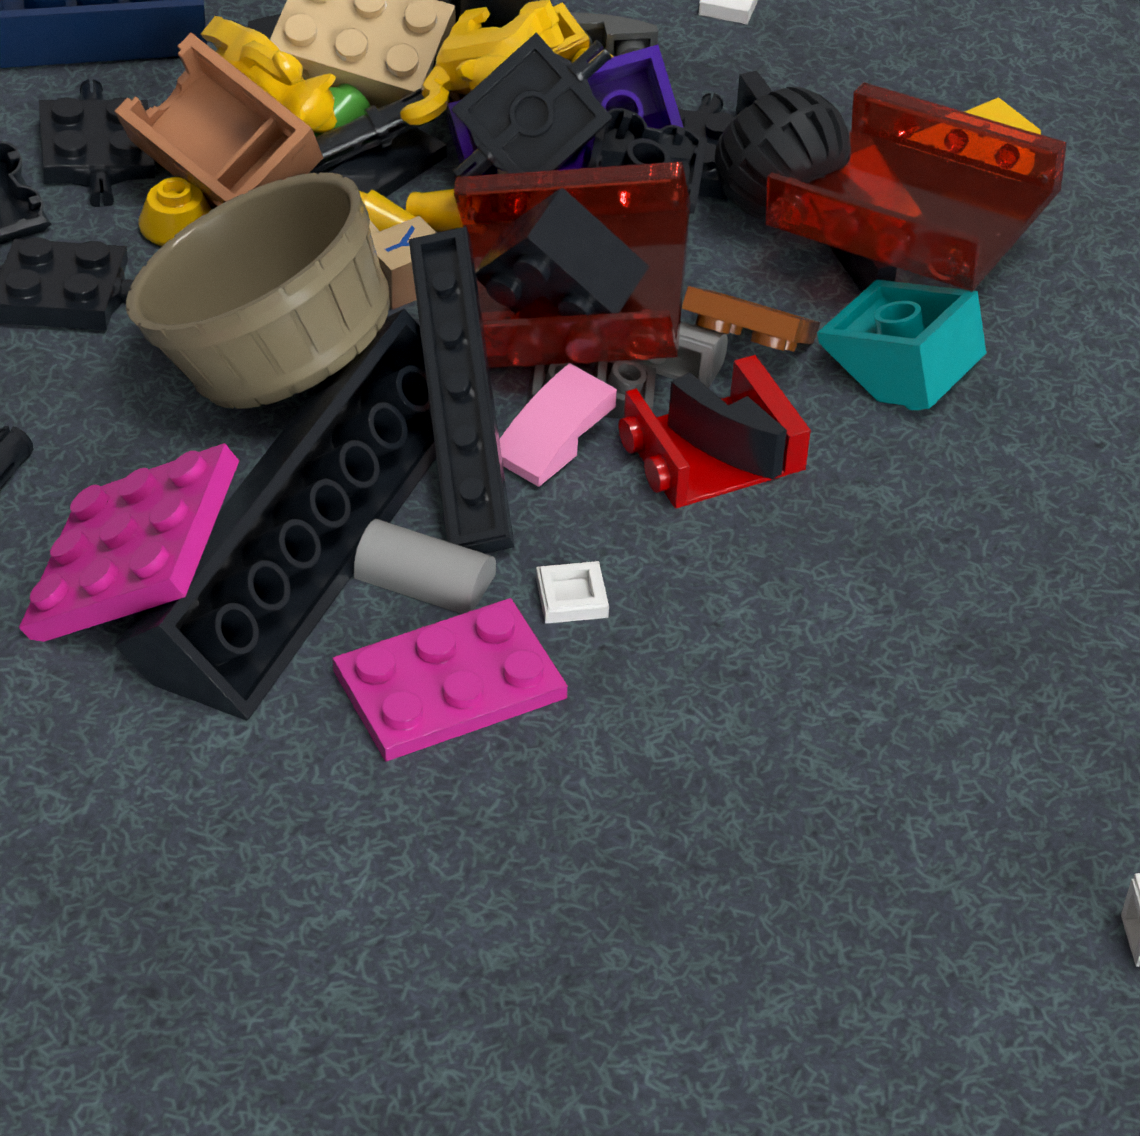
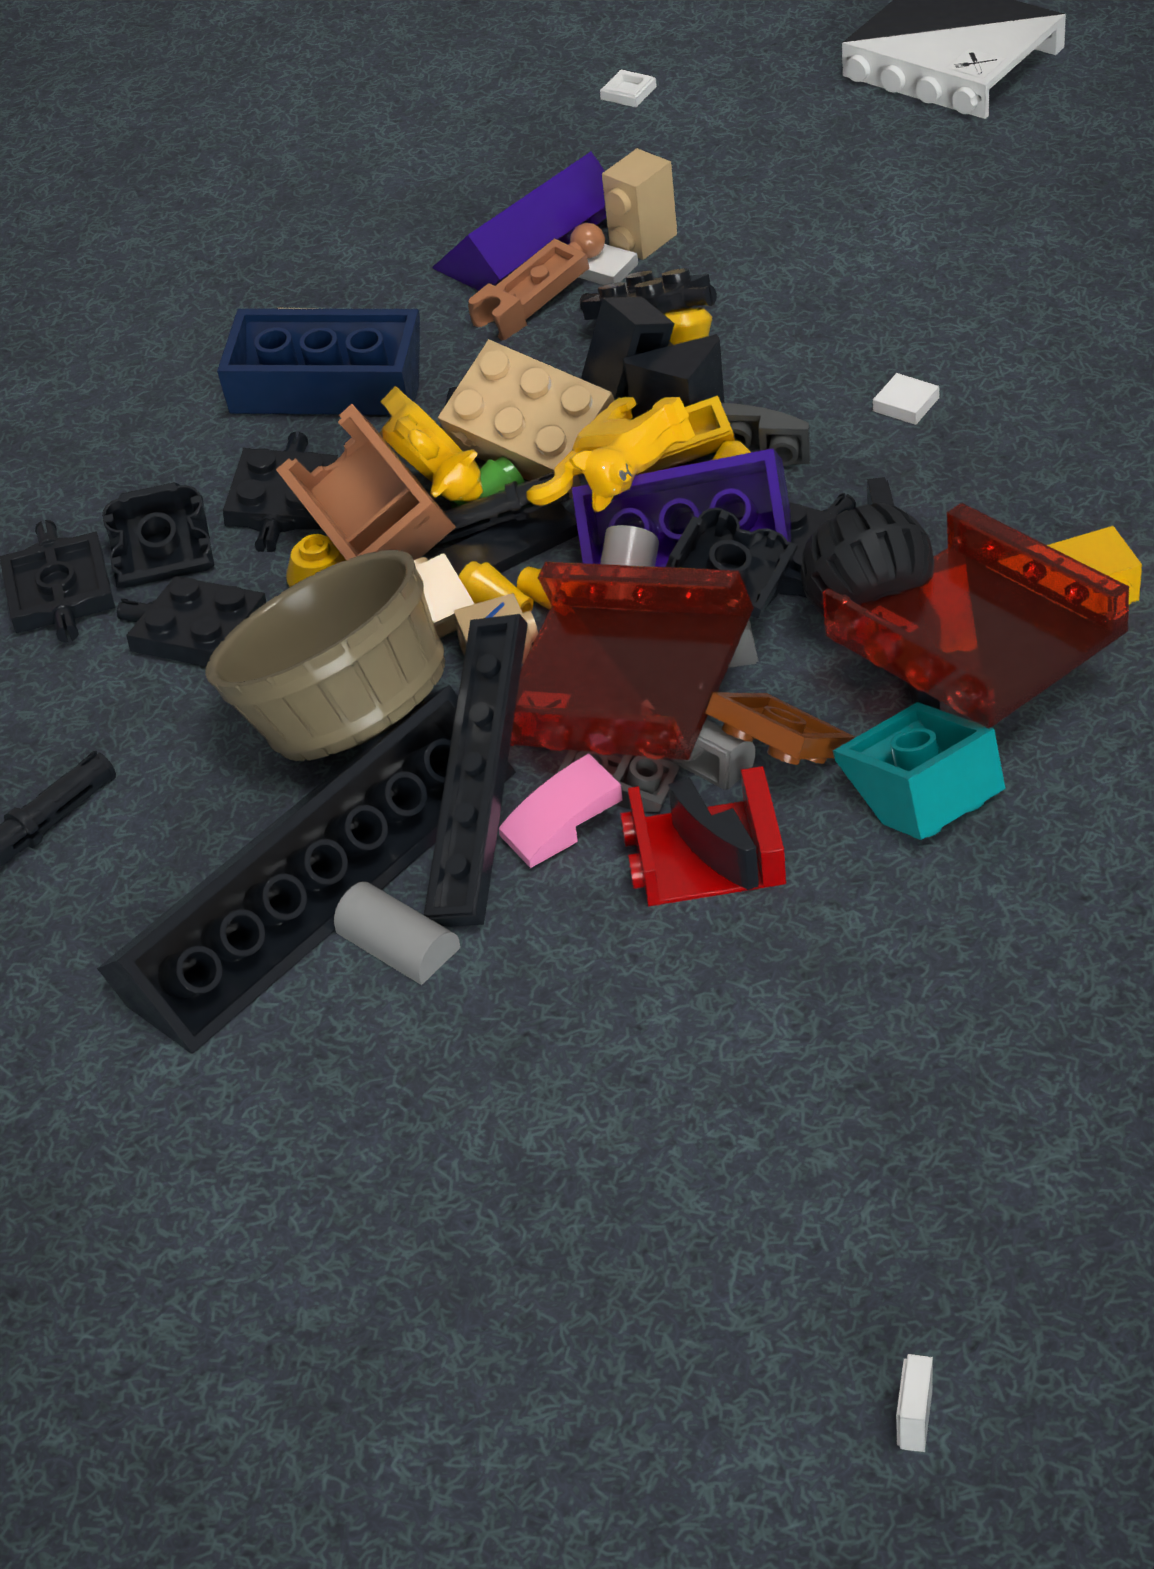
camera: 25 degrees right, 0 degrees up
(130, 544) = (140, 876): dark pink plate -> none
(449, 679) = (375, 1043): dark pink plate -> none
(533, 110) = (626, 506): black plate -> none
(565, 257) = (601, 658): black brick -> none
(572, 592) = (518, 976): white tile -> none

